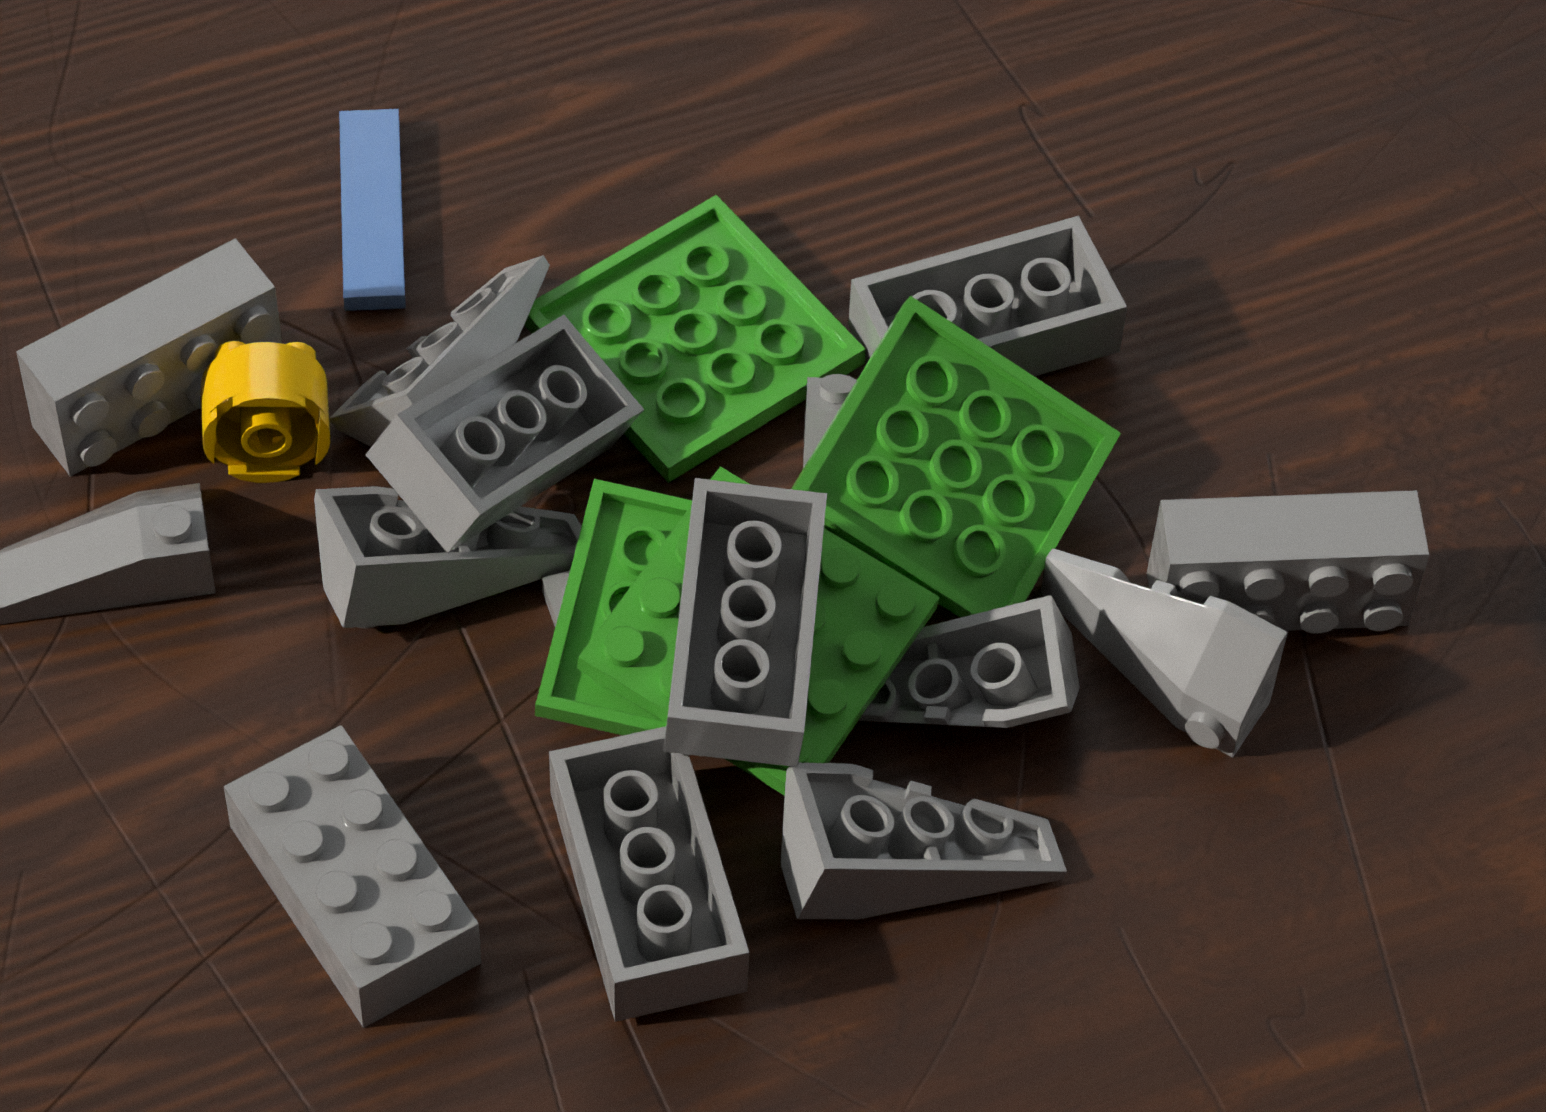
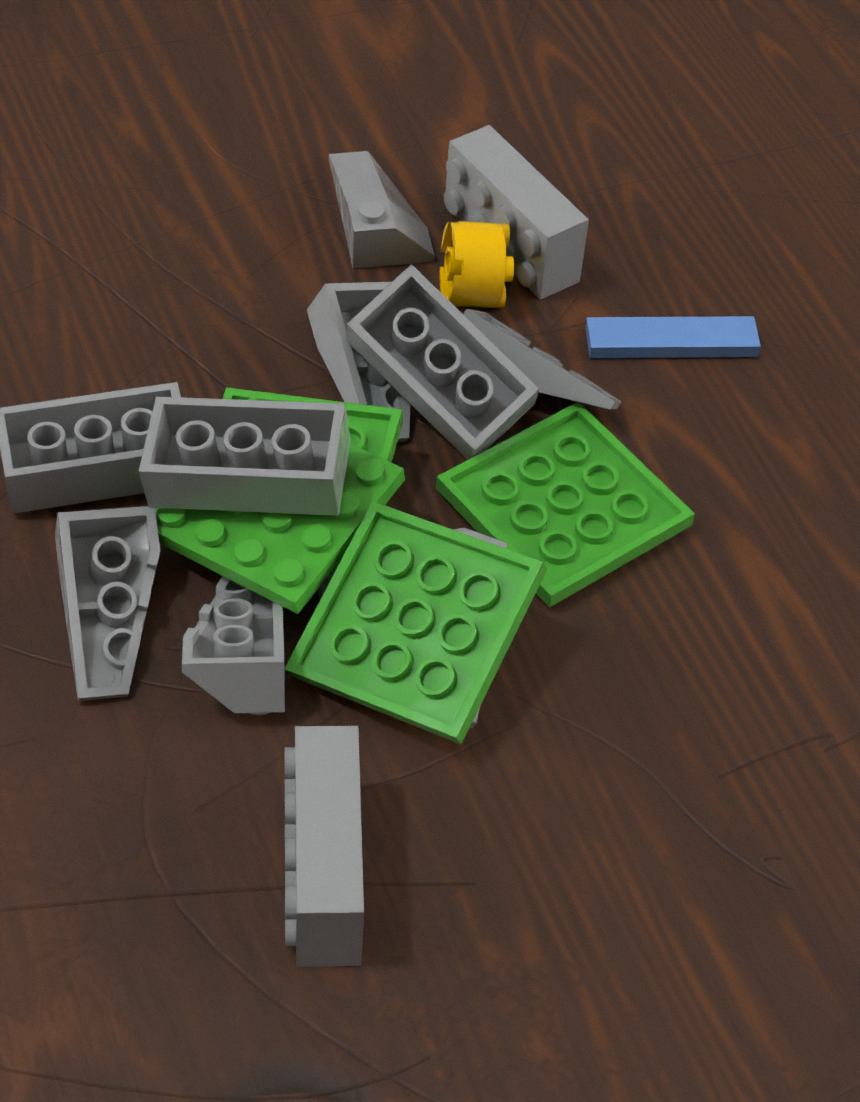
camera: 90 degrees right, 5 degrees down
(353, 875) = (116, 312): light grey brick -> none
(1026, 295) = (588, 674): light grey brick -> none
(1195, 662) = (246, 779): light grey wedge -> none

